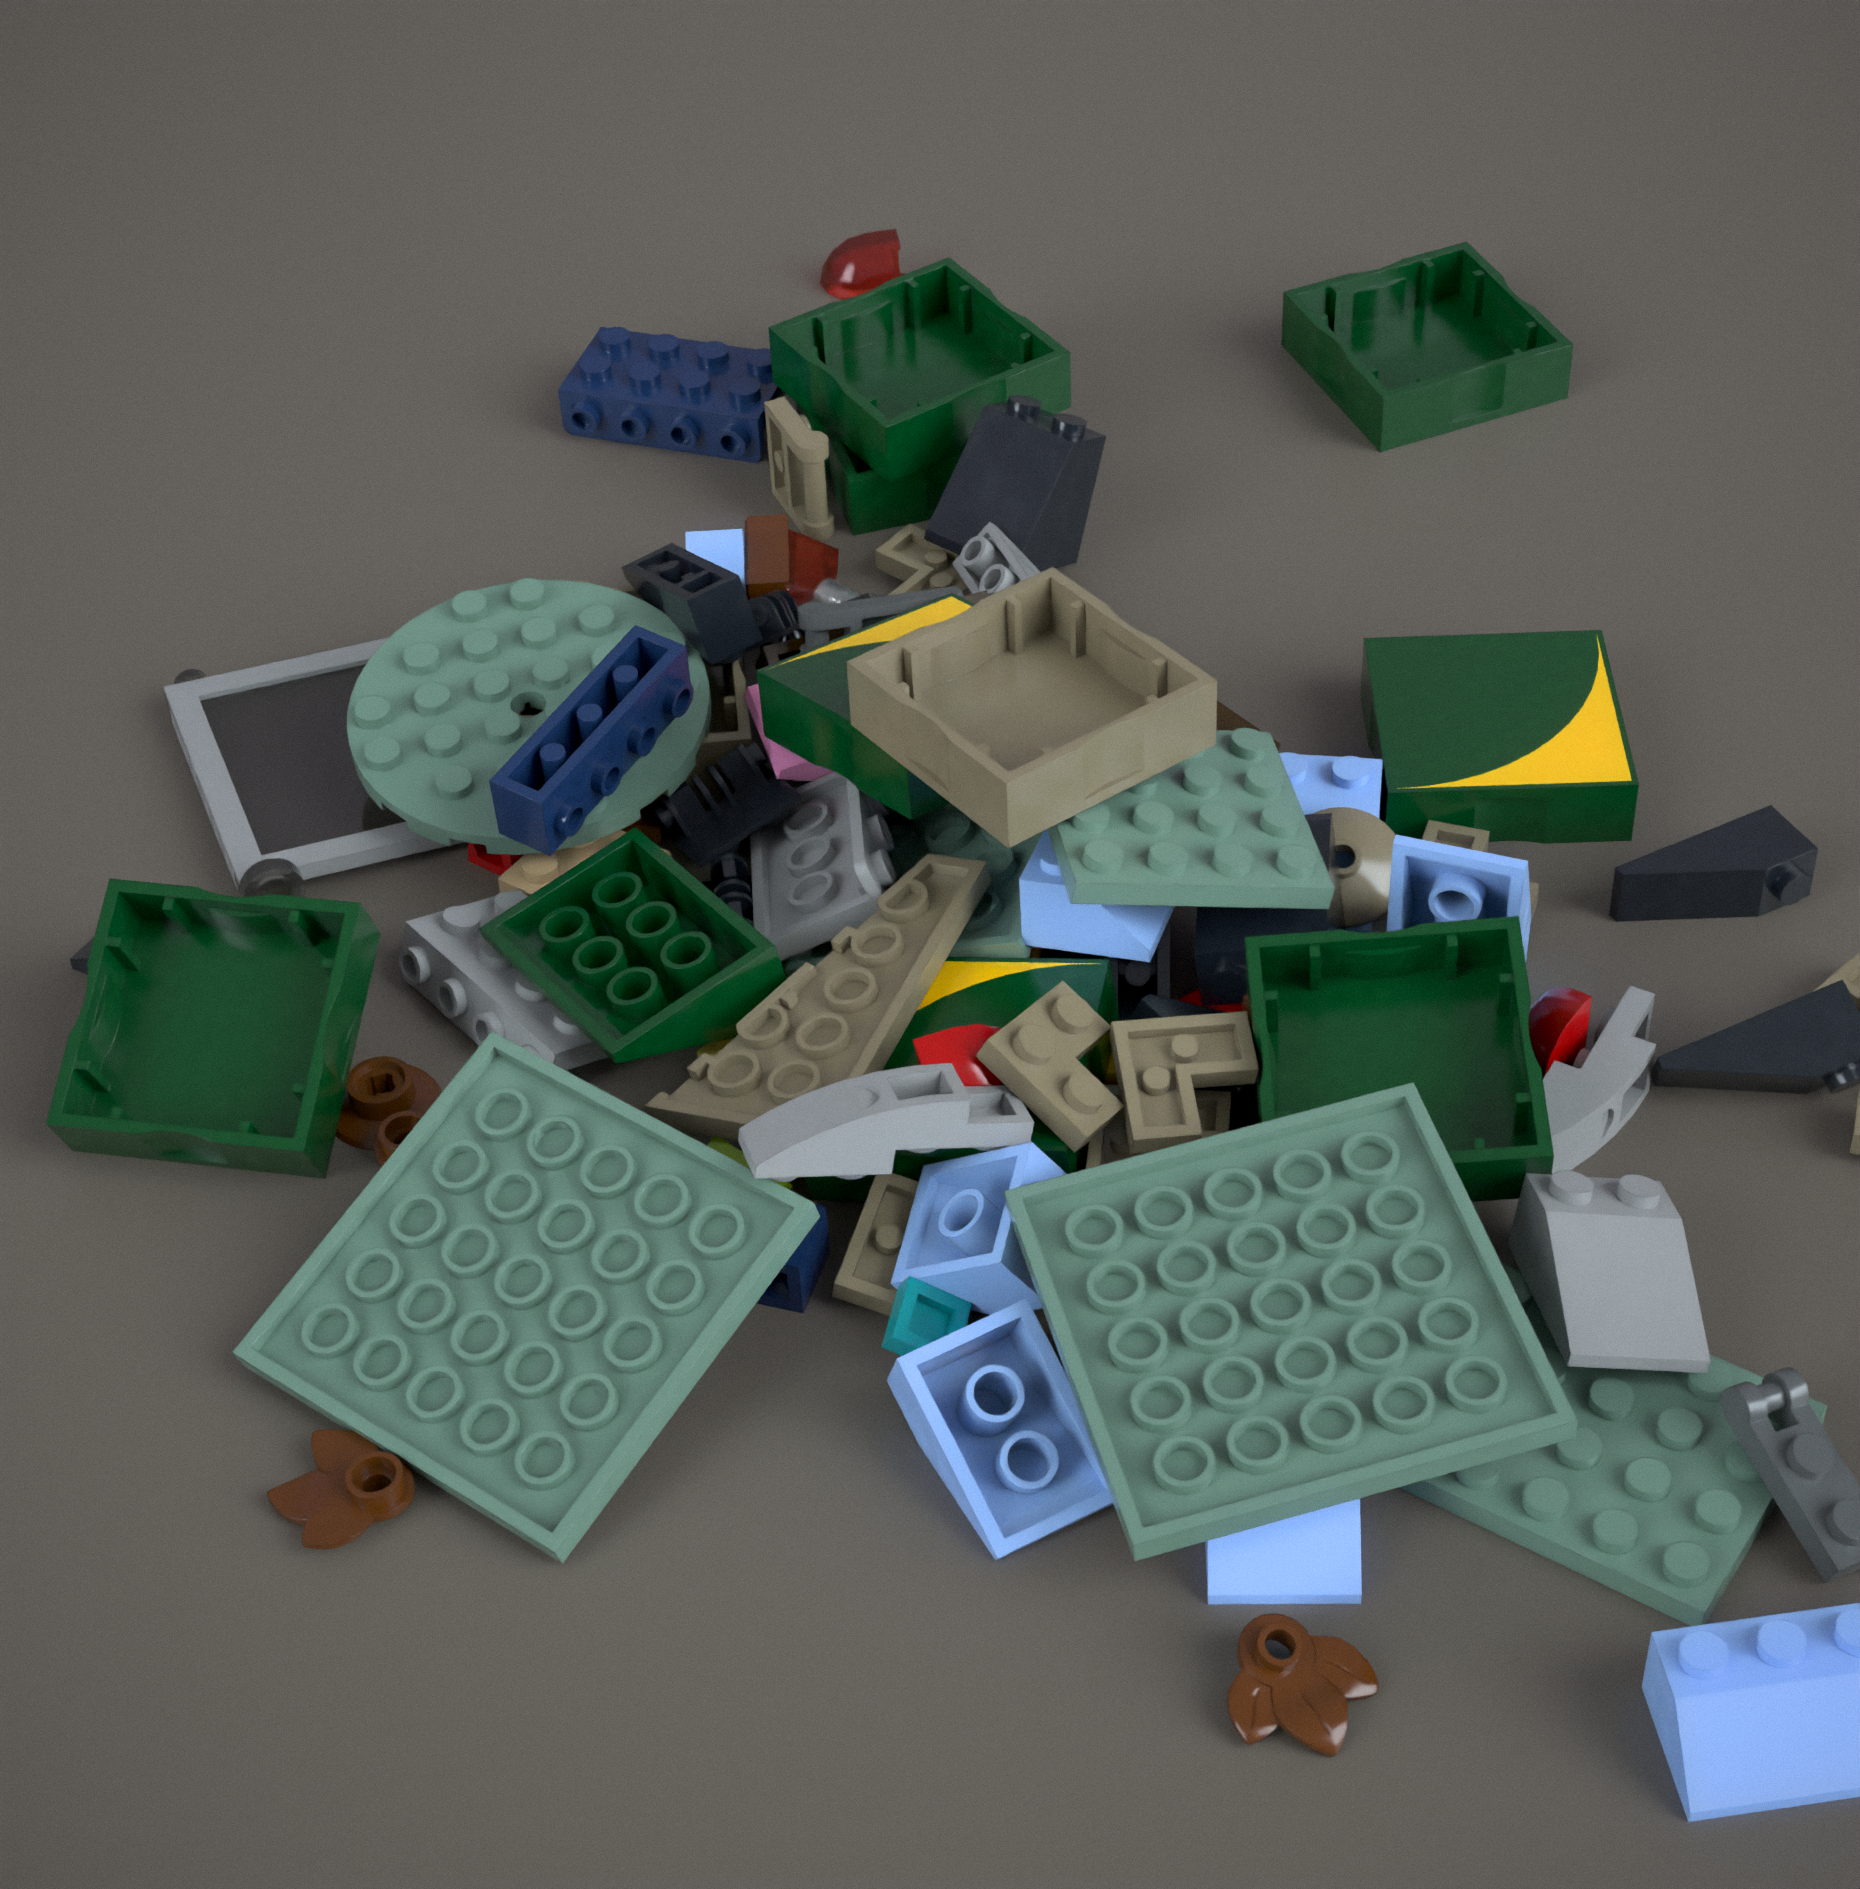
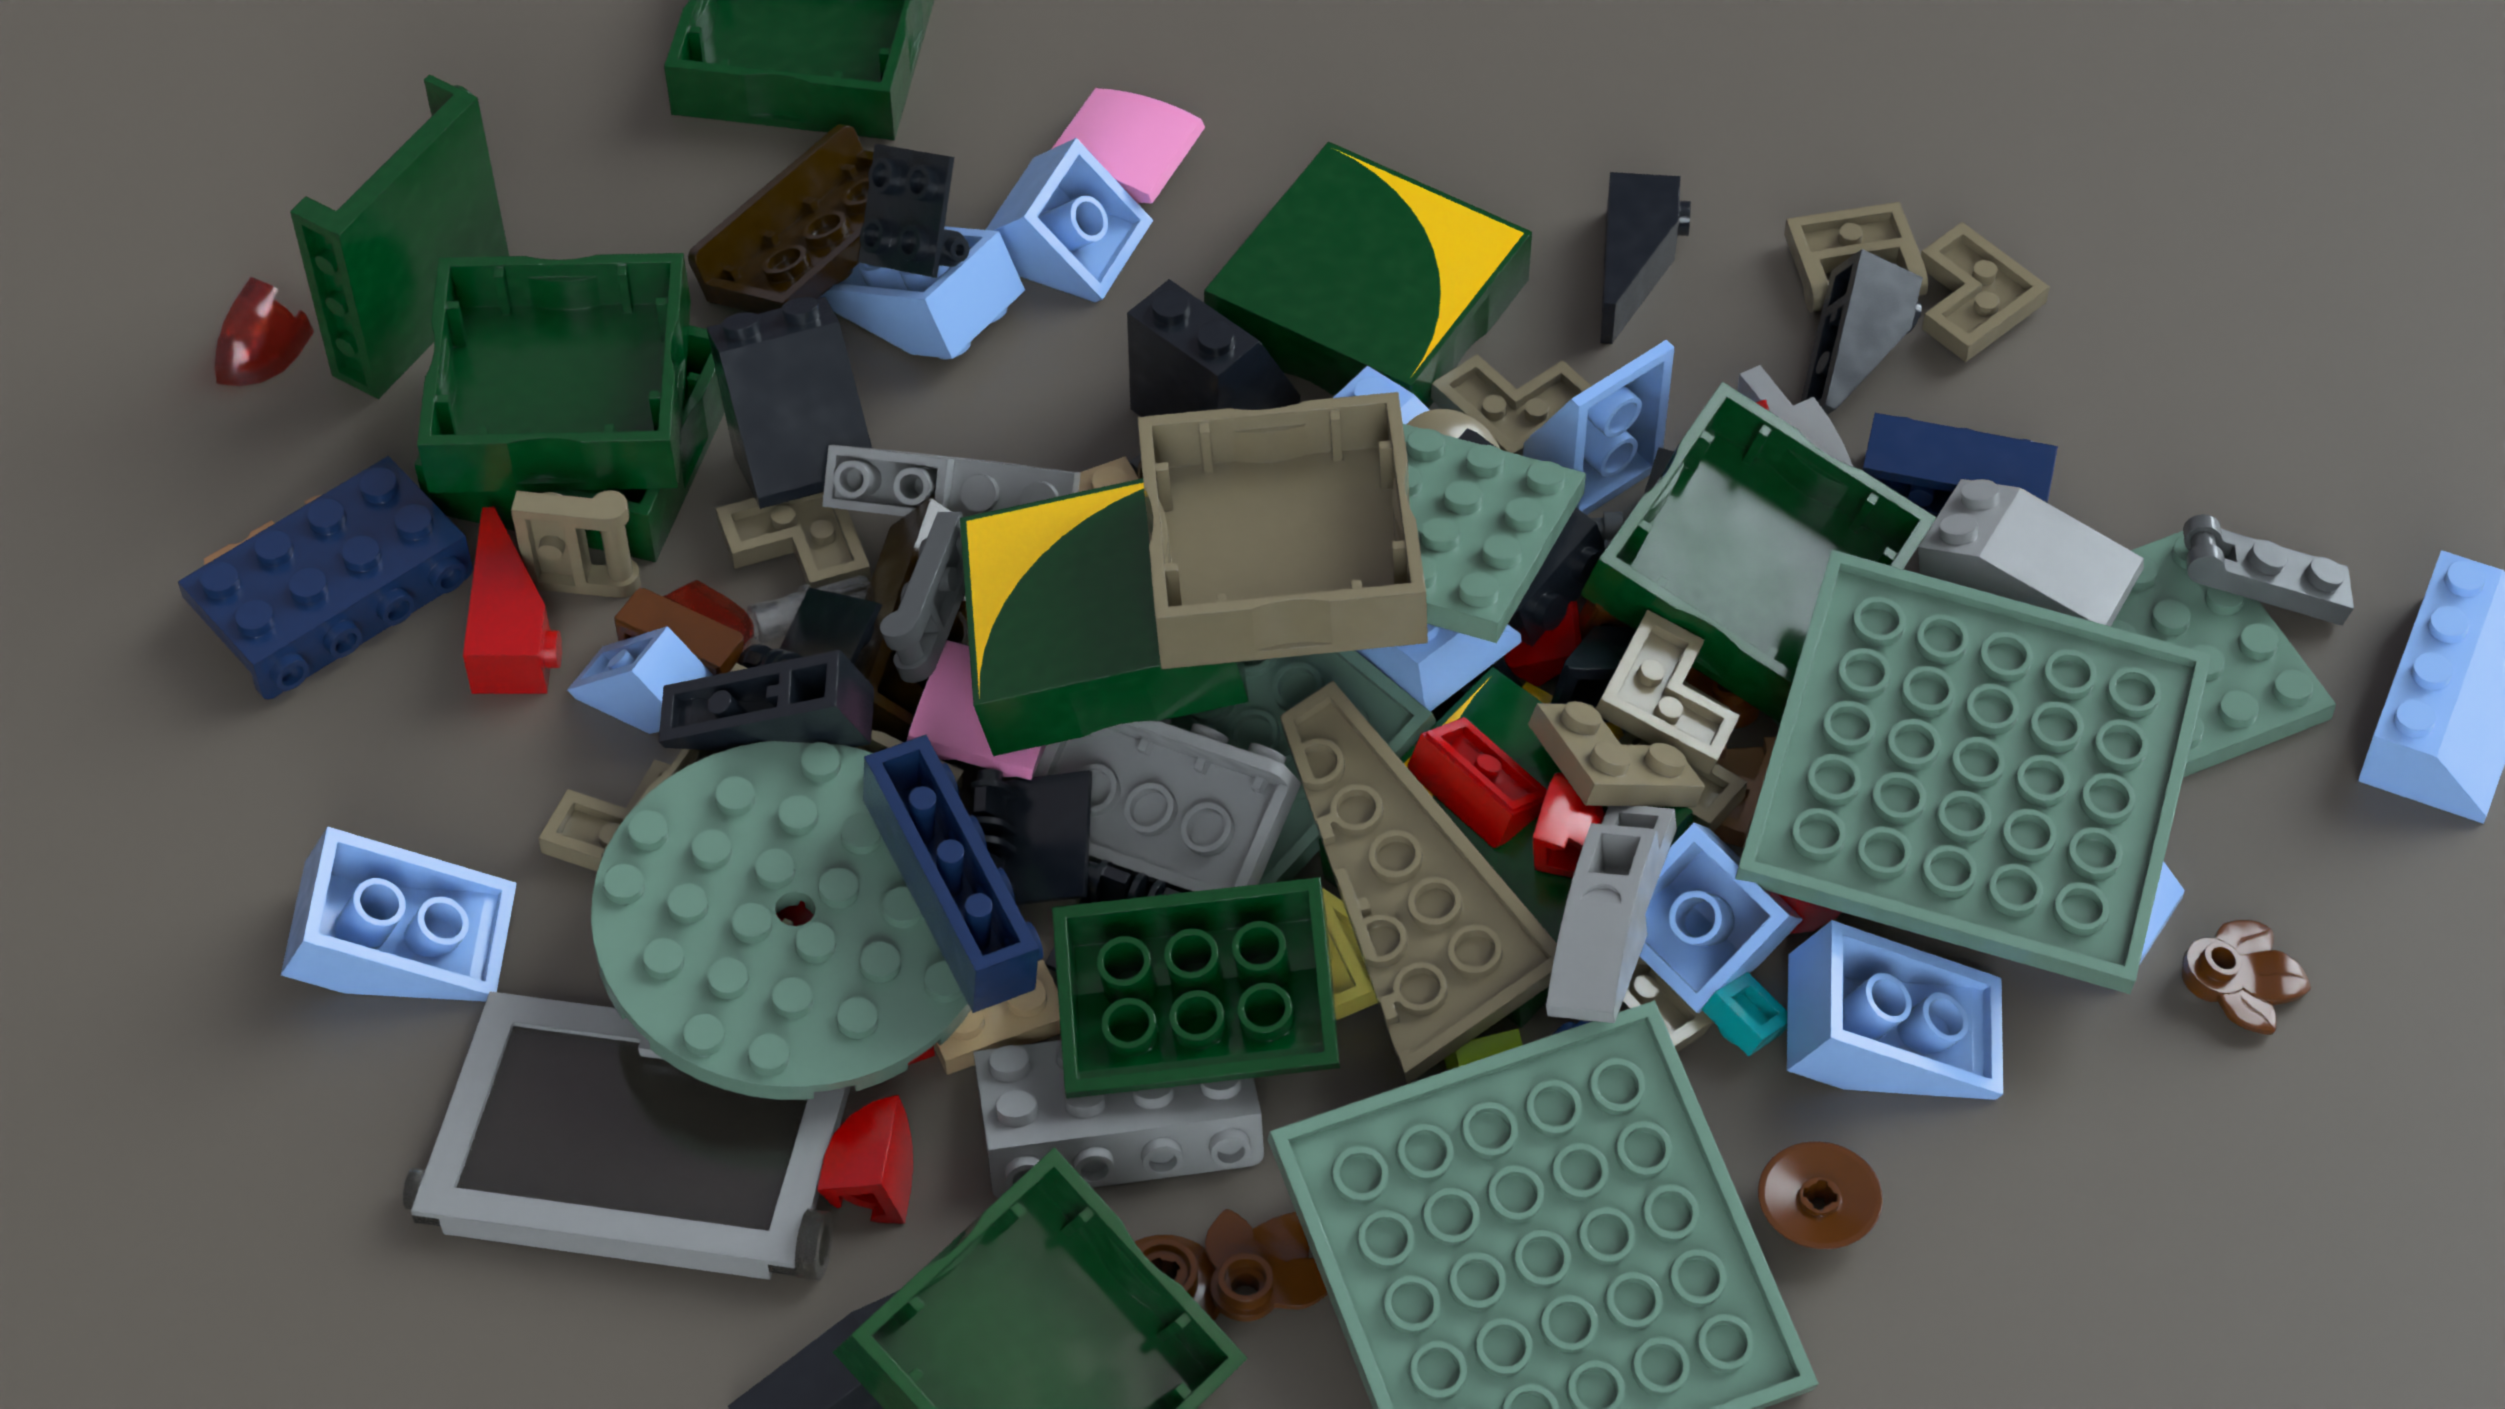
camera: 60 degrees left, 10 degrees up
(380, 878) = (871, 1161): none -> red brick
(397, 550) = (396, 923): none -> light blue slope
(712, 484) = (507, 621): none -> red slope
(759, 1439) = (1826, 1173): none -> reddish brown piece
(982, 212) = (380, 250): none -> dark green panel
(988, 988) = (1476, 780): none -> red slope
(1227, 434) = (793, 233): none -> dark brown bracket
(1230, 462) = (909, 212): none -> black hinge
(1231, 523) = (932, 313): none -> light blue slope
(1291, 671) = (1197, 359): none -> black slope
(1378, 558) = (1070, 223): none -> light blue slope
(1495, 551) = (1134, 138): none -> bright pink slope
(1725, 1228) = (1930, 459): none -> dark blue brick

